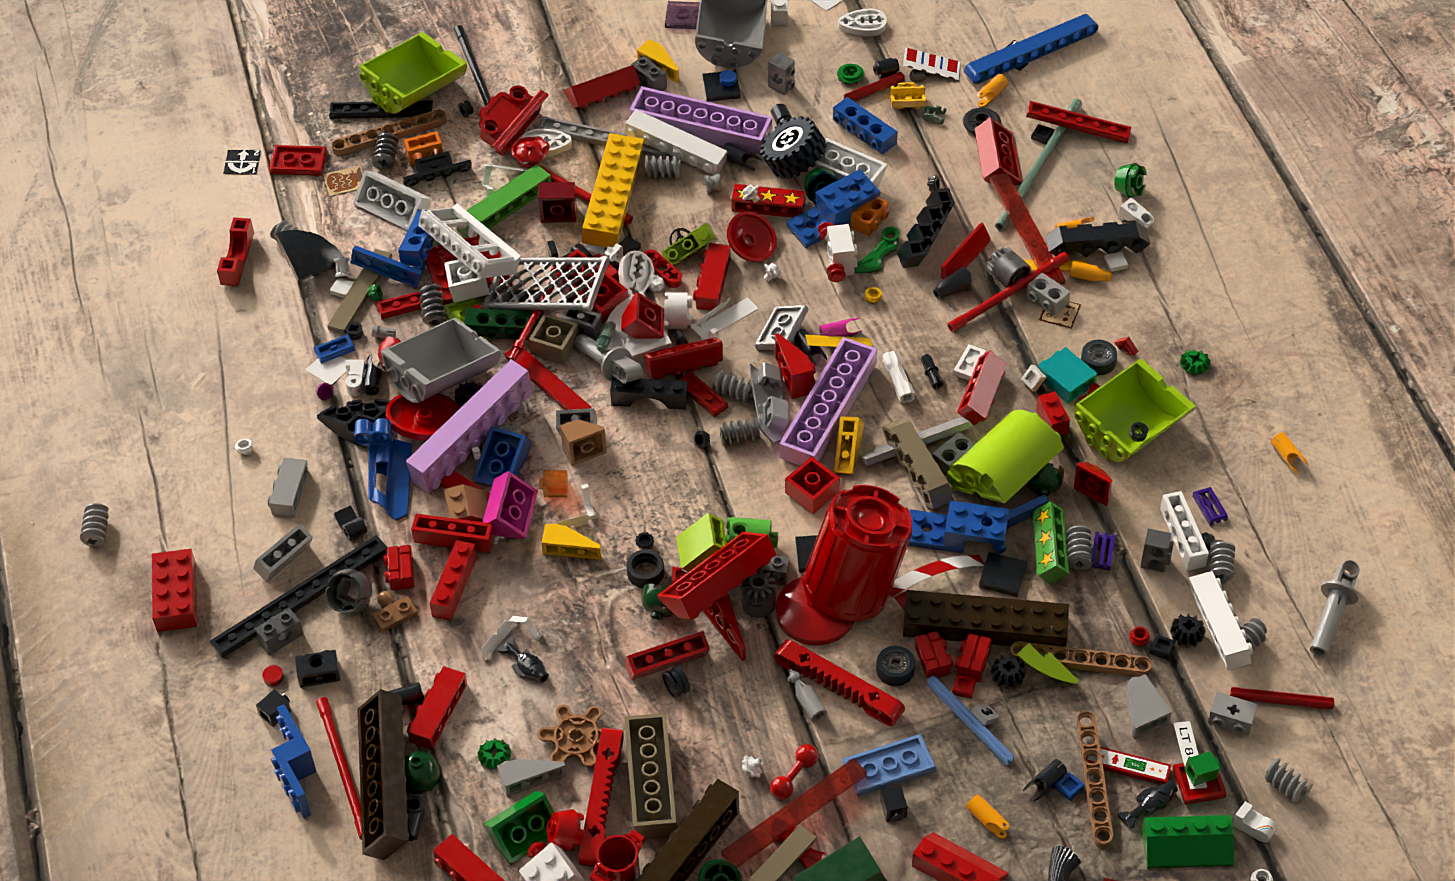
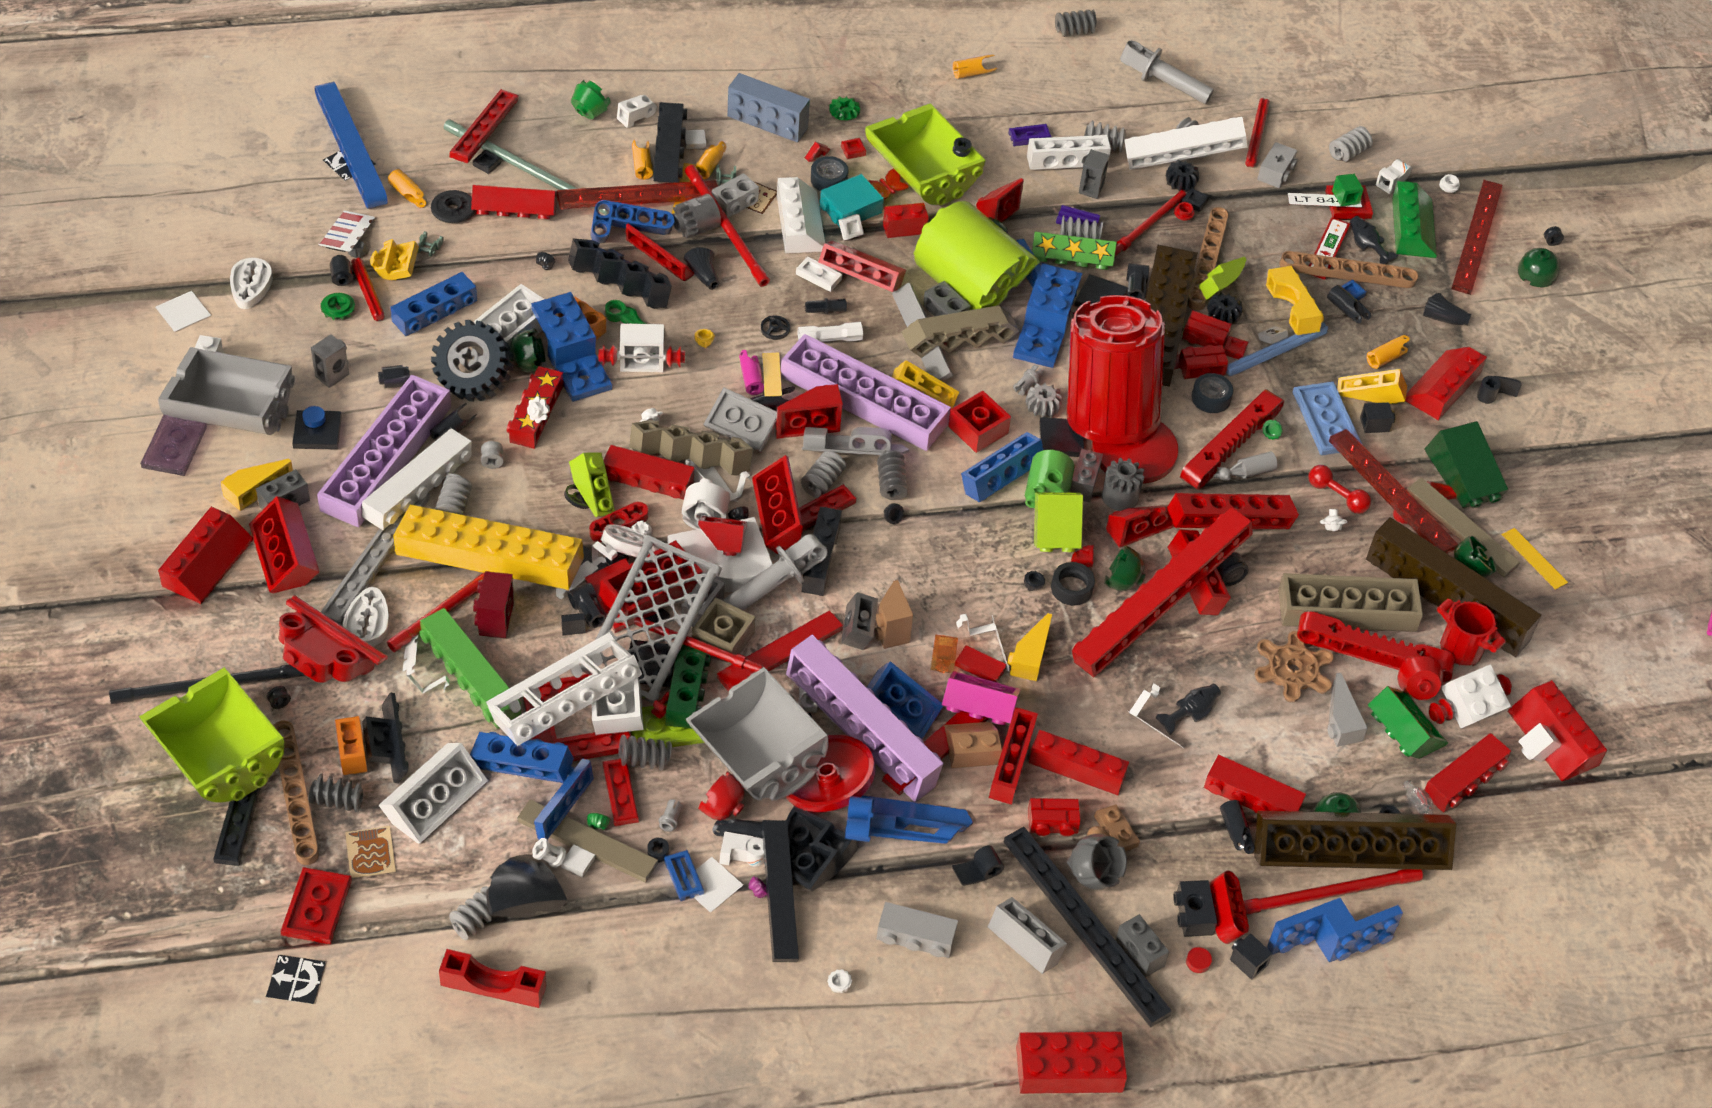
camera: 90 degrees left, 0 degrees up
(311, 683) = (1229, 907): none -> red beam
(317, 399) = (779, 891): none -> black tile
(437, 834) = (1418, 799): none -> clear plant
(485, 757) = (1303, 749): green gear -> none
(530, 150) = (394, 624): red piece -> none
(551, 510) = (980, 664): none -> red tile
(586, 47) = (204, 555): none -> red slope
(605, 337) = (751, 570): sand green piece -> none
(629, 620) = (1162, 592): none -> red brick
(718, 575) = (1124, 496): red slope -> none
(742, 299) = (702, 449): none -> dark tan brick
(749, 723) = (1202, 510): none -> red brick
(756, 231) = (598, 425): red dish -> none
(762, 504) = (1001, 467): none -> blue brick
(861, 717) = (1272, 429): none -> green piece
(901, 336) = (775, 320): none -> black piece
(933, 802) = (1374, 387): none -> yellow slope
(988, 210) = (634, 212): none -> blue beam
(1008, 733) = (1286, 285): none -> yellow arch
(1035, 339) = (799, 216): none -> white slope
(1036, 593) = (1137, 279): none -> black piece
(1074, 283) = (719, 175): none -> sand green piece
(1080, 589) = (1125, 242): none -> red bar
(1145, 706) = (1268, 221): light grey slope -> none
(1161, 298) = (768, 107): none -> sand blue brick
(1385, 529) = (1075, 21): none -> dark grey piece

